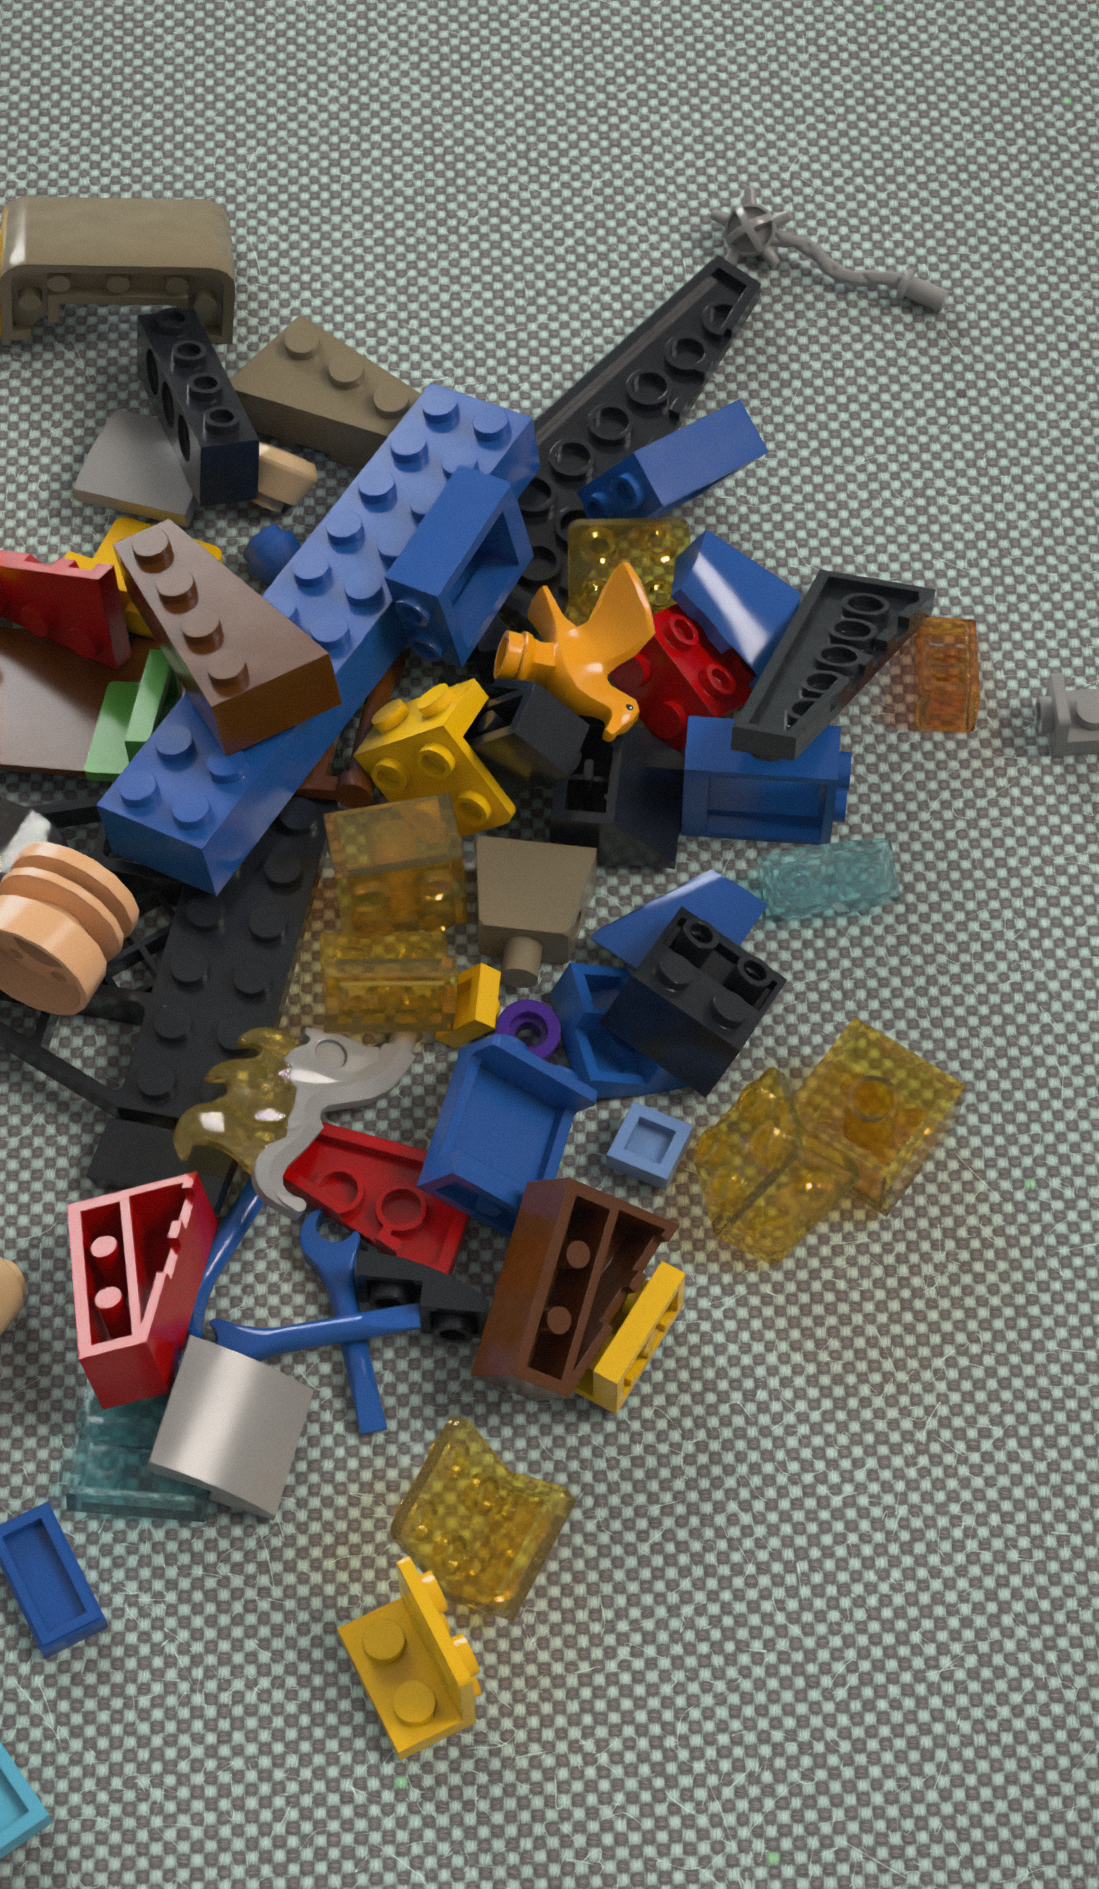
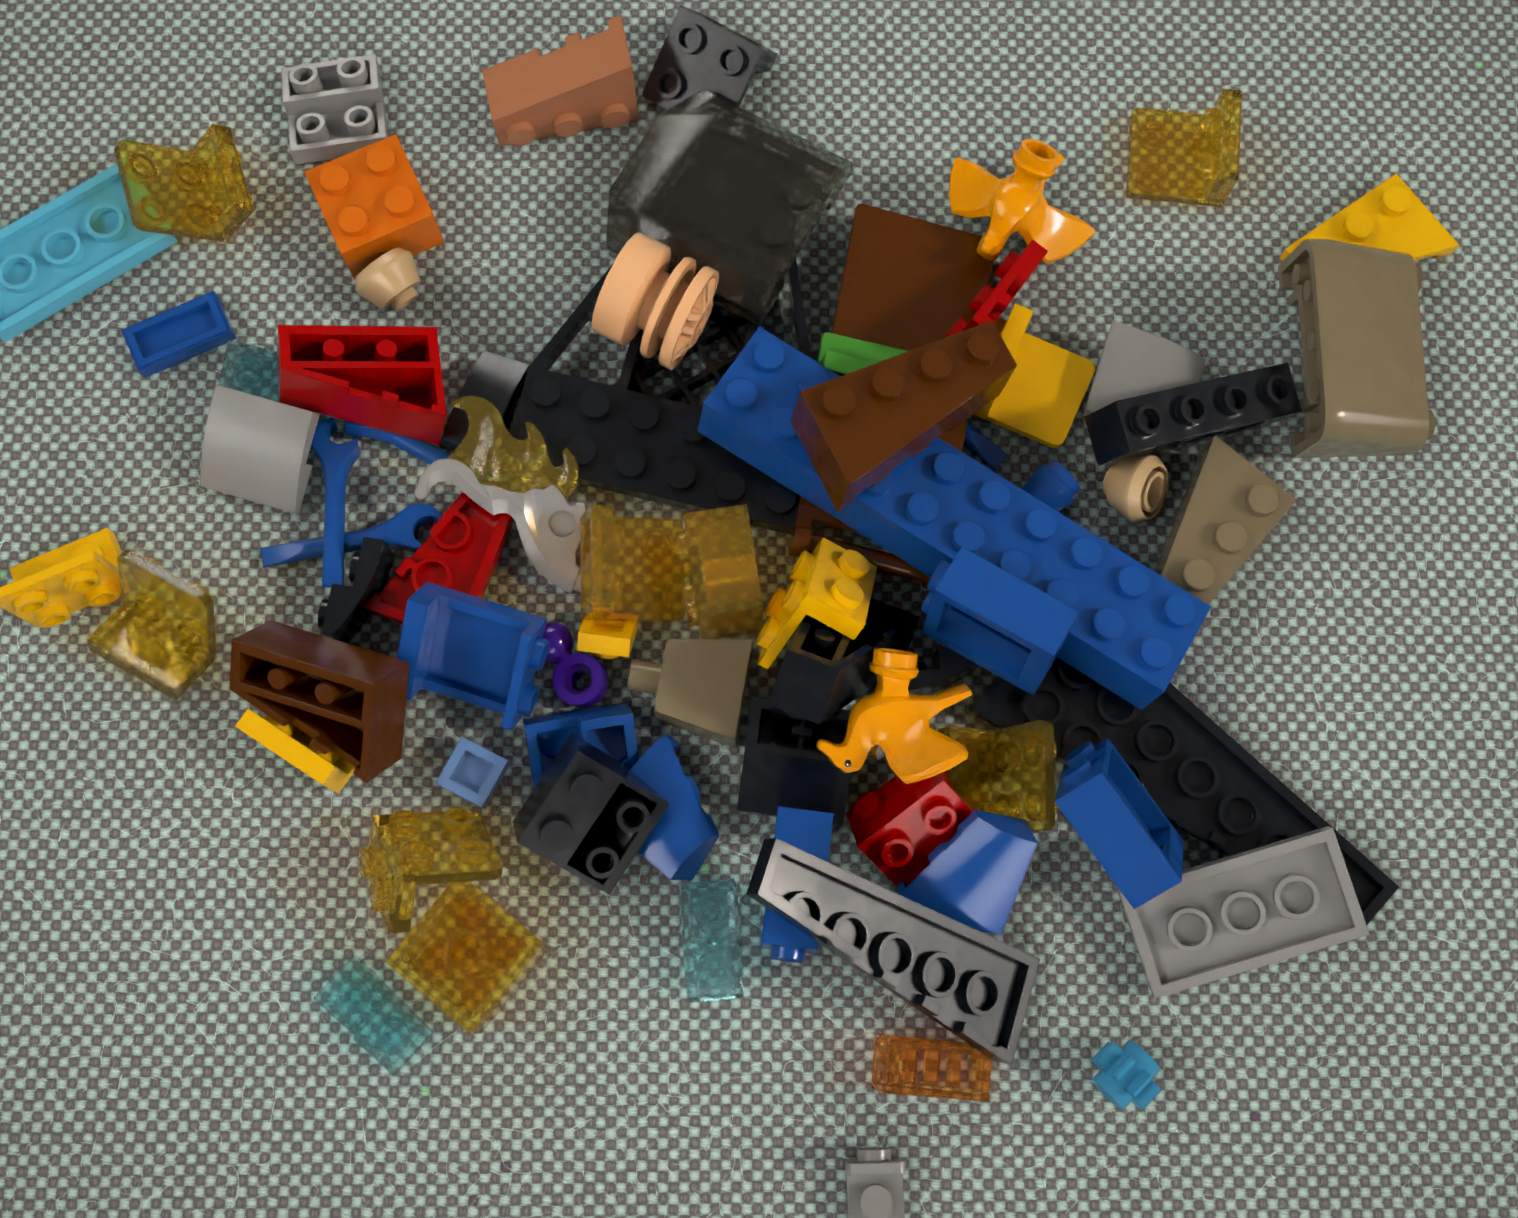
camera: 90 degrees right, 15 degrees up
(749, 349) = (1247, 913): none -> light grey plate
(753, 232) = (1434, 925): light grey piece -> none
(935, 488) = (1126, 1075): none -> dark azure gear
(948, 1238) = (373, 1014): none -> clear light blue slope

